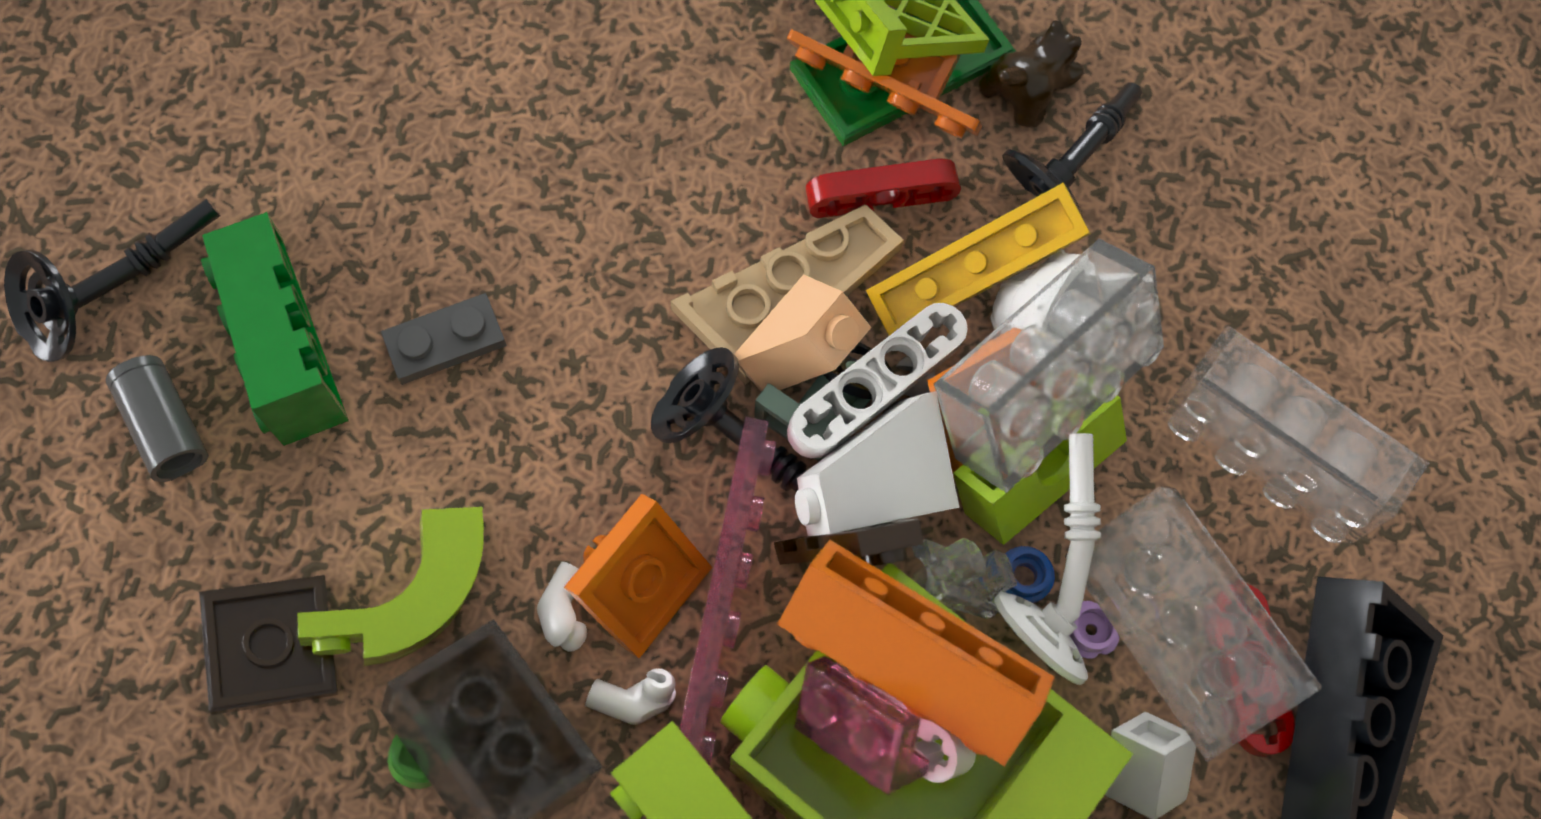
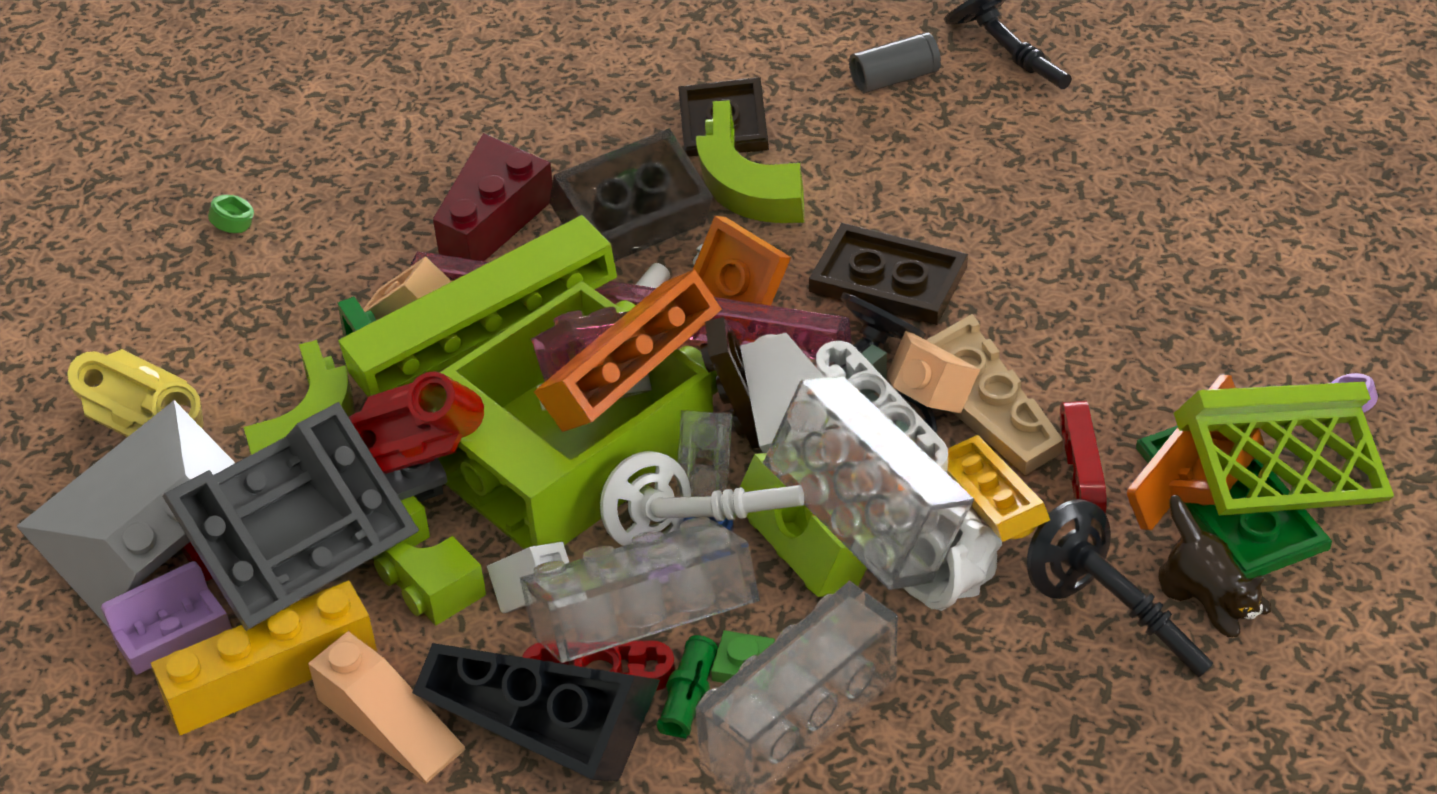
camera: 105 degrees right, 25 degrees down
(271, 331) = (954, 104): green wedge -> none
(443, 338) = (952, 202): dark grey plate -> none
(589, 404) = (889, 272): none -> dark brown plate
(1216, 510) = (734, 651): none -> bright green plate
(1267, 568) = (687, 686): none -> green pin

